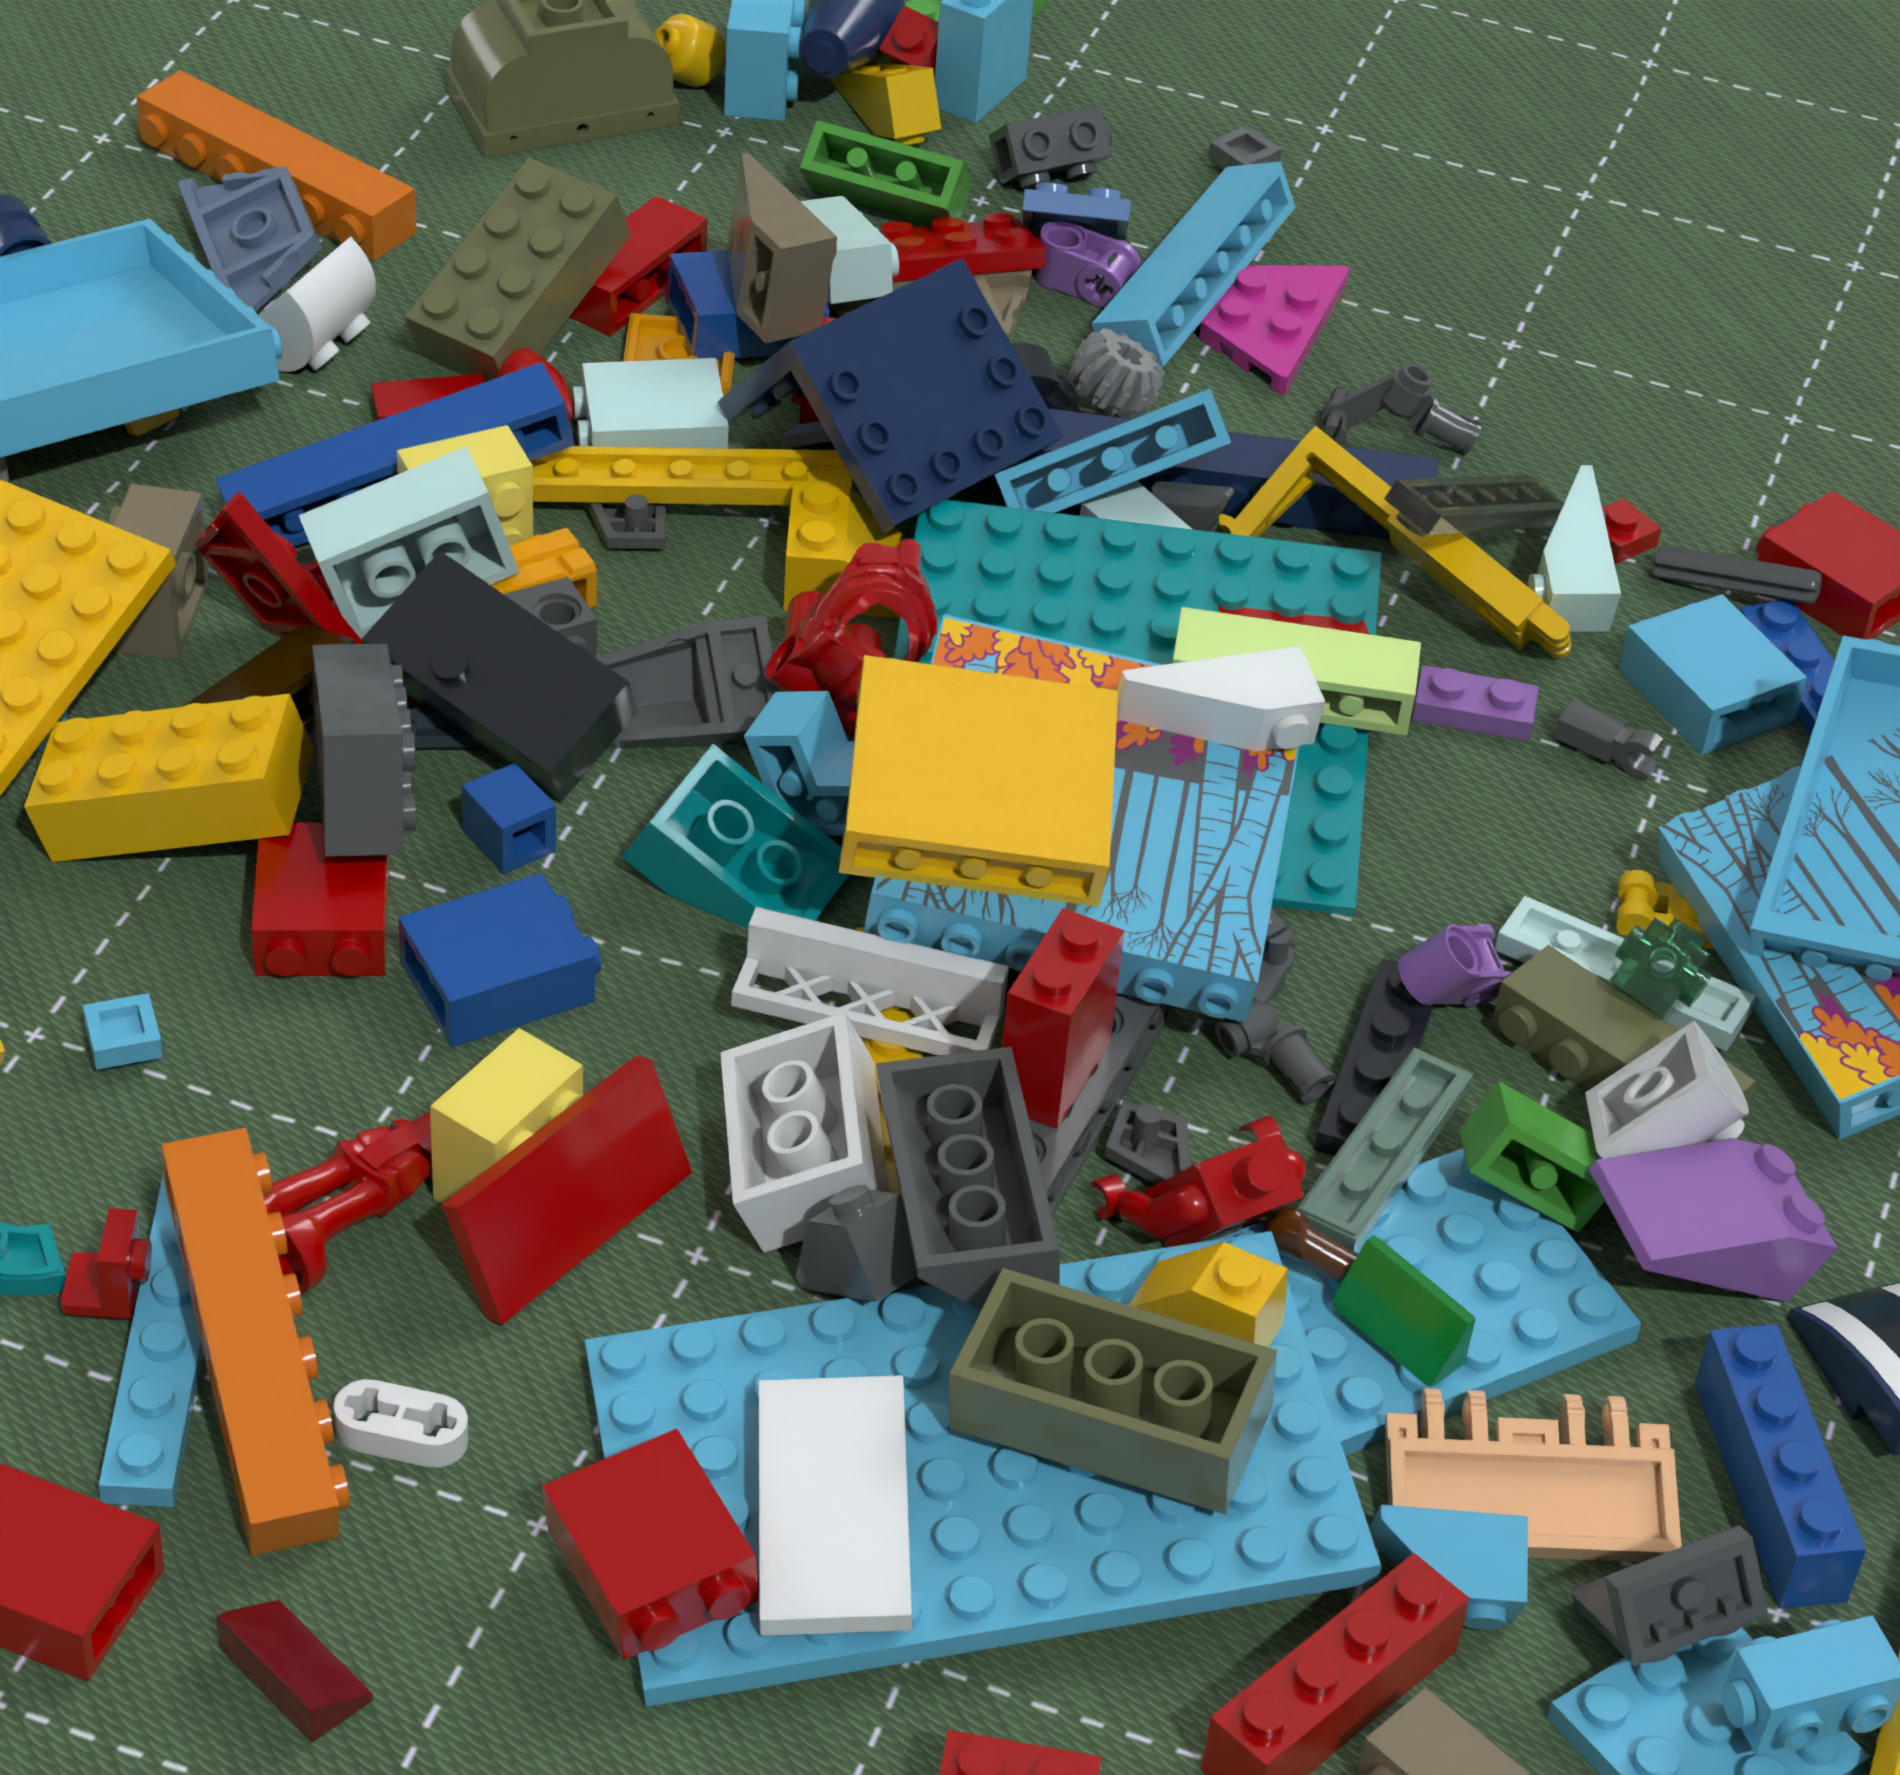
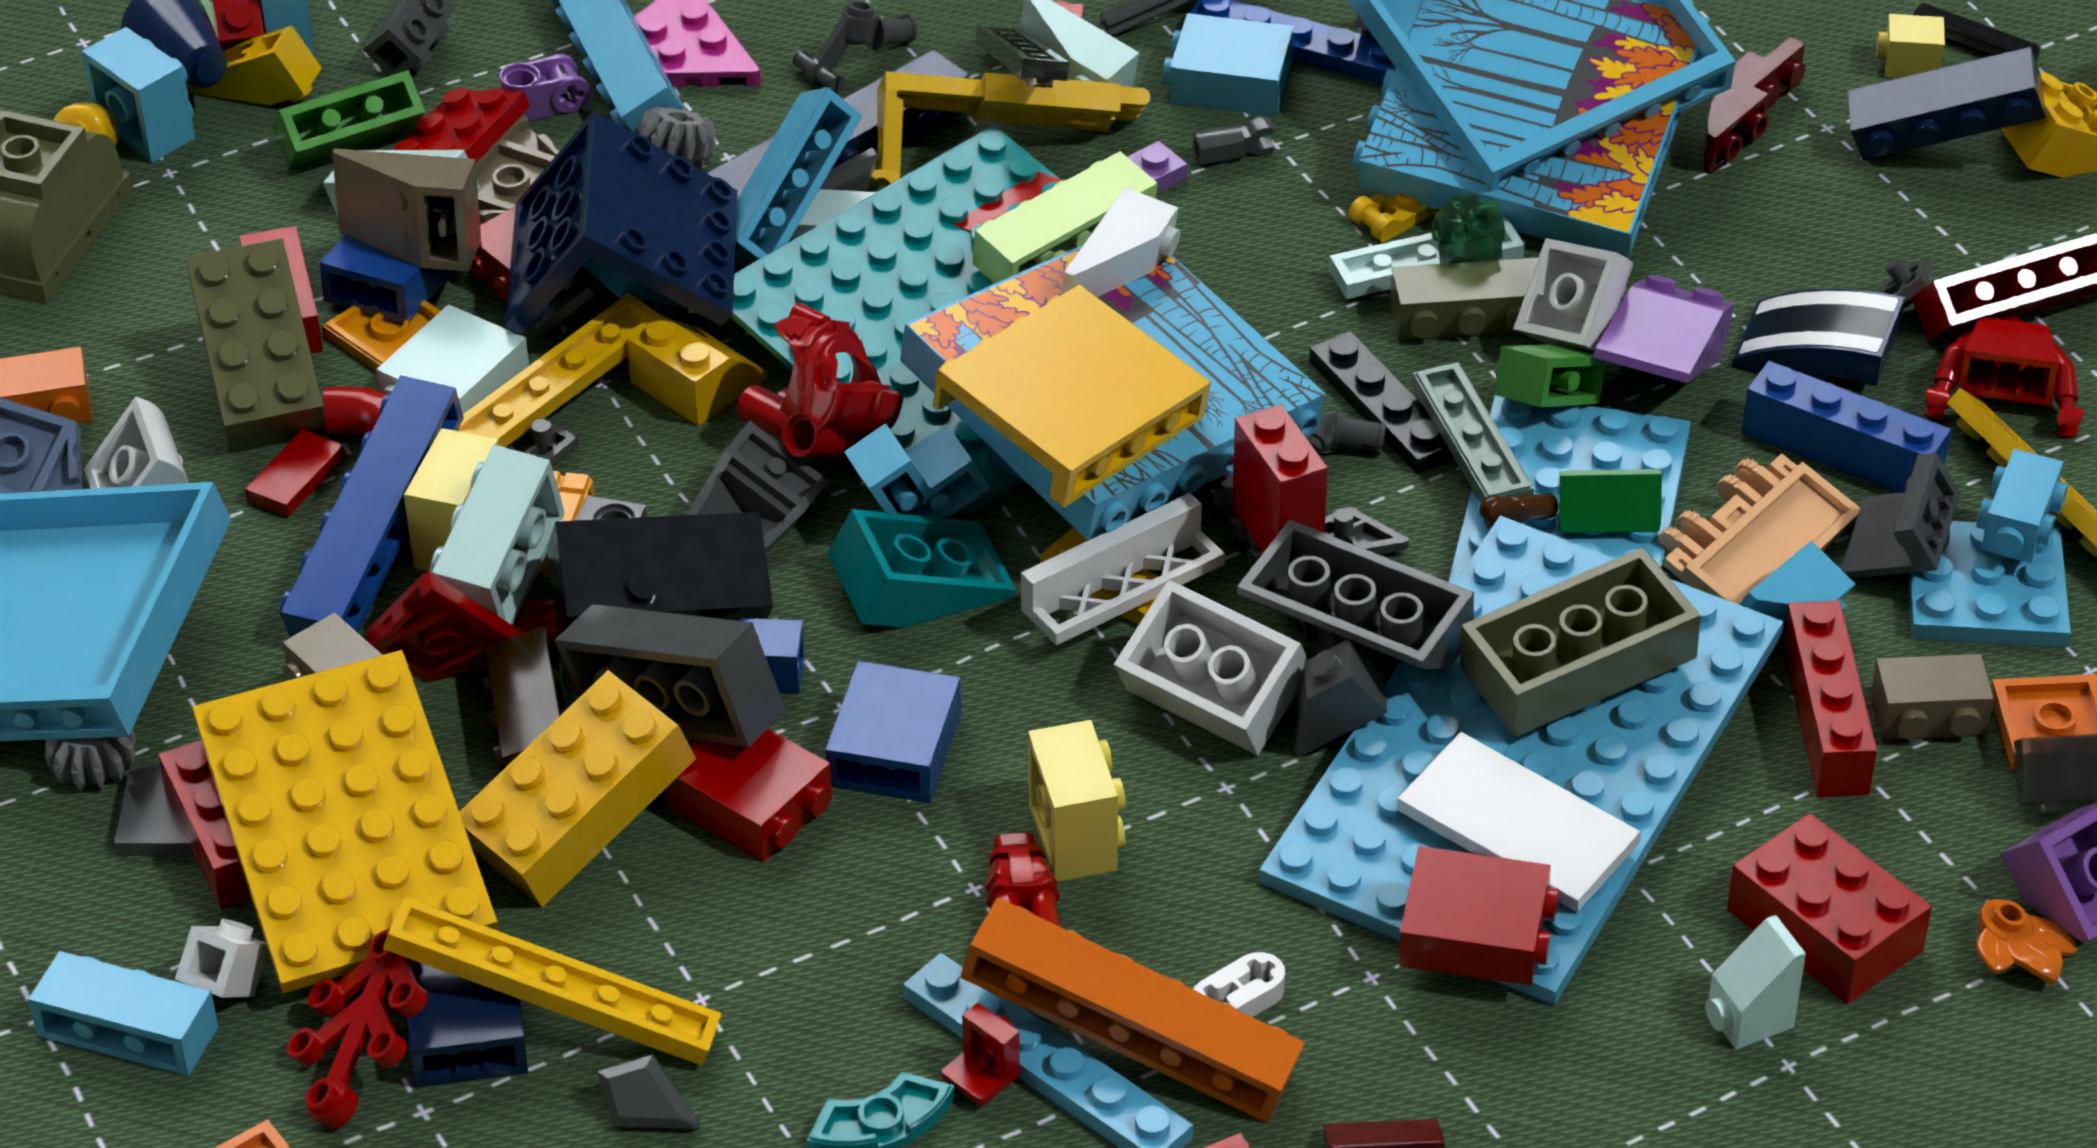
camera: 45 degrees left, 0 degrees up
(122, 1031) = (762, 946): medium azure plate -> none
(567, 1189) = (1148, 800): red tile -> none
(1099, 211) = (499, 54): medium blue plate -> none
(1214, 1193) = (1440, 513): red torso -> none
(1219, 1291) = (1546, 556): yellow slope -> none
(1454, 967) = (1362, 316): medium lavender piece -> none

